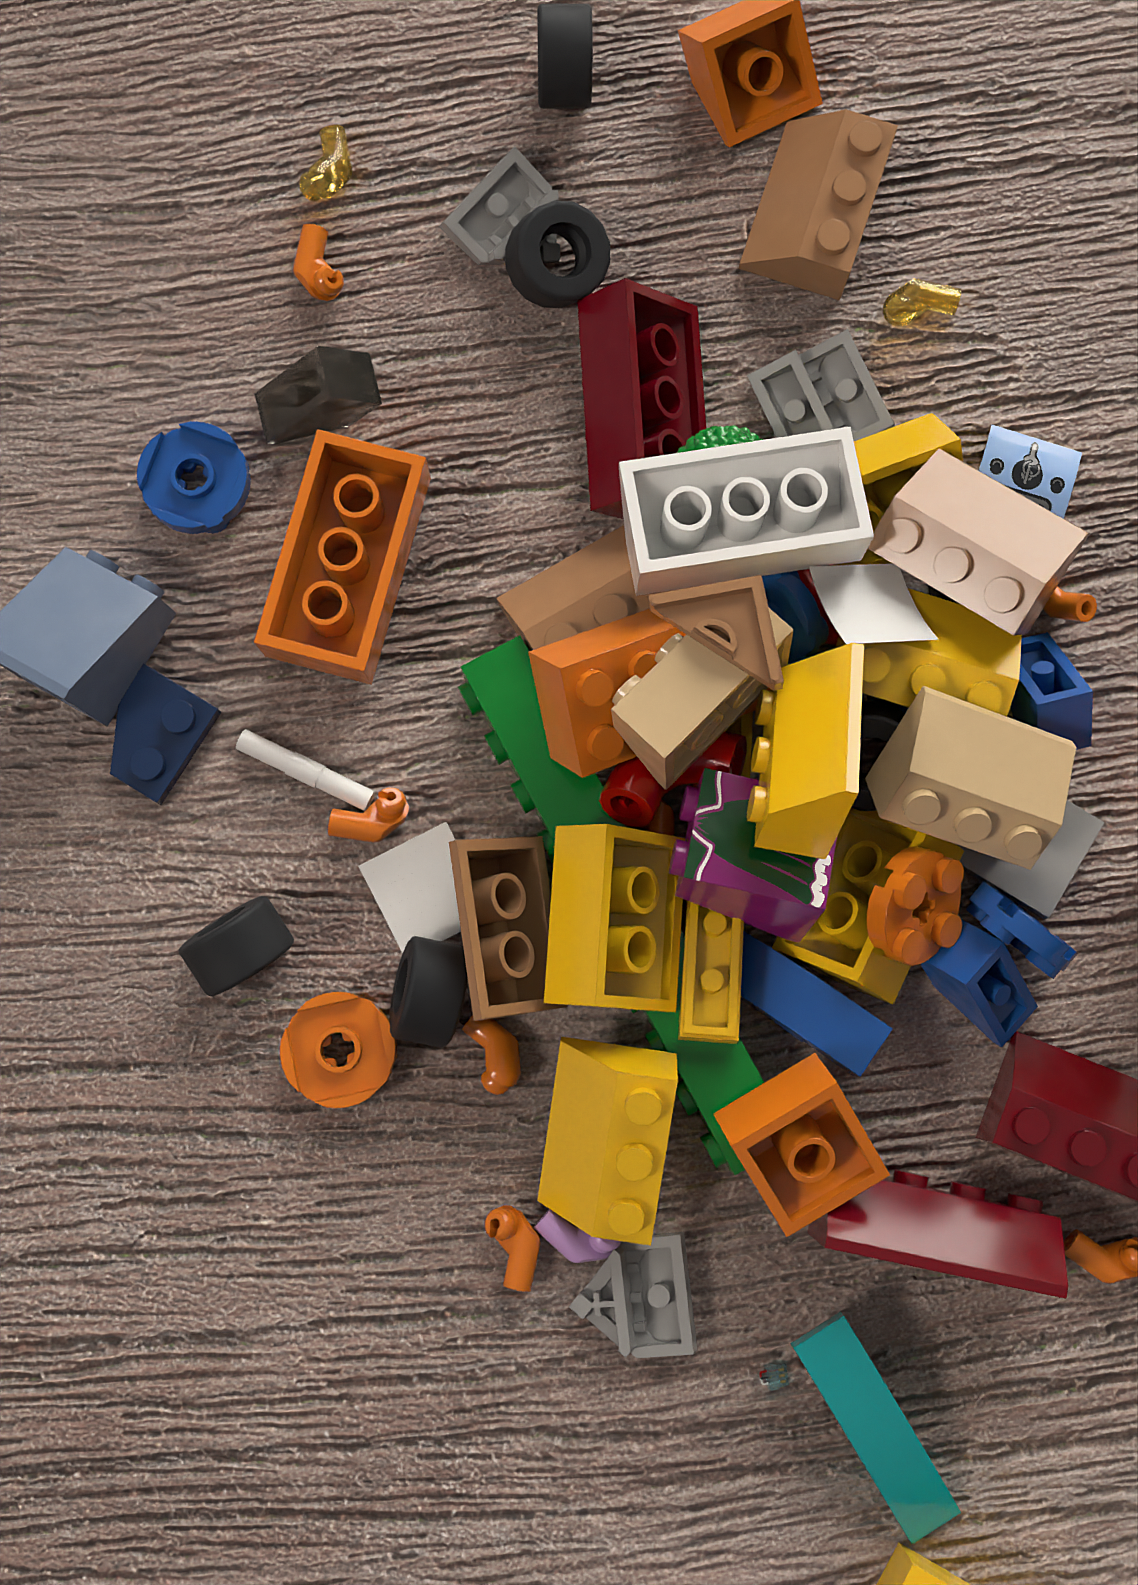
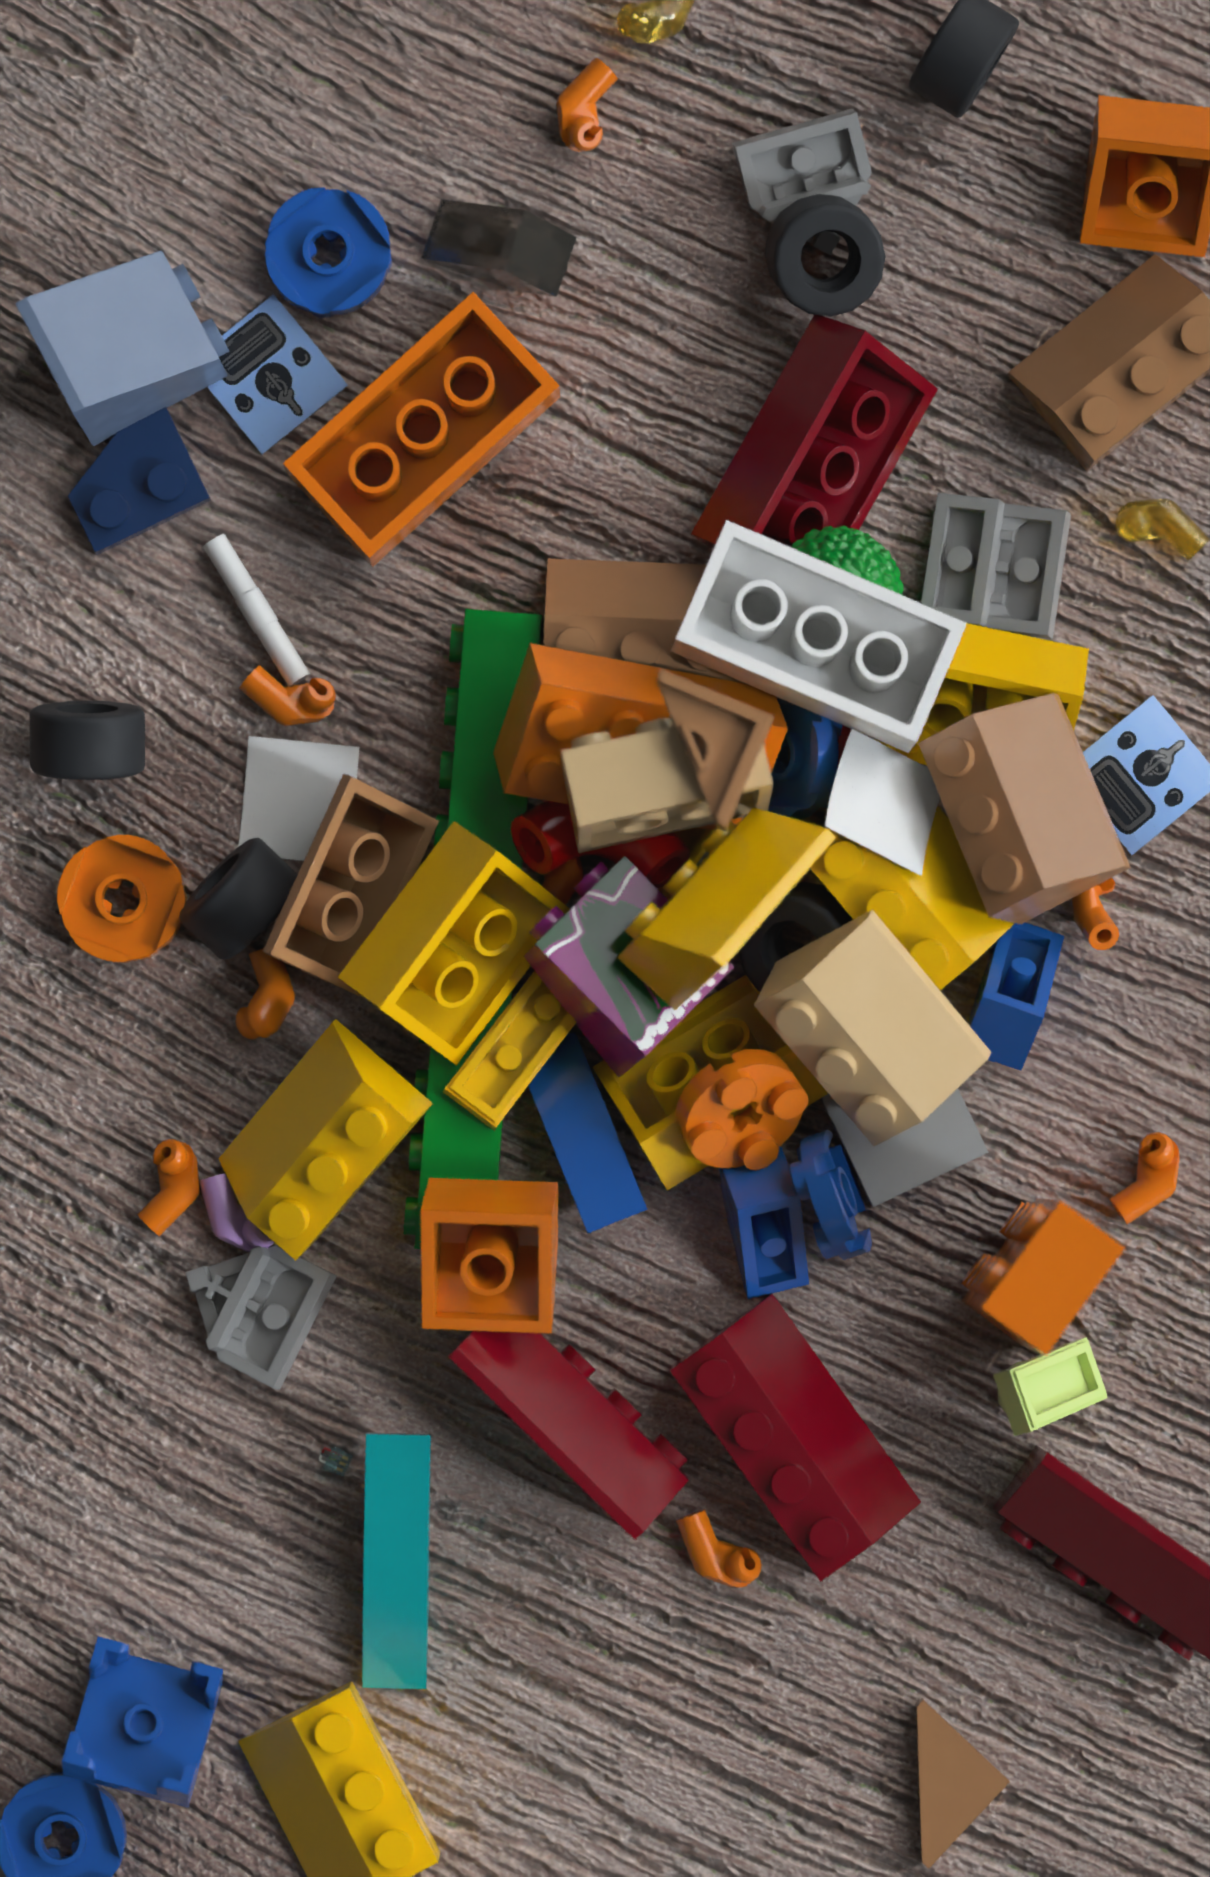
camera: 30 degrees right, 5 degrees up
(210, 593) = (273, 375): none -> light blue sticker

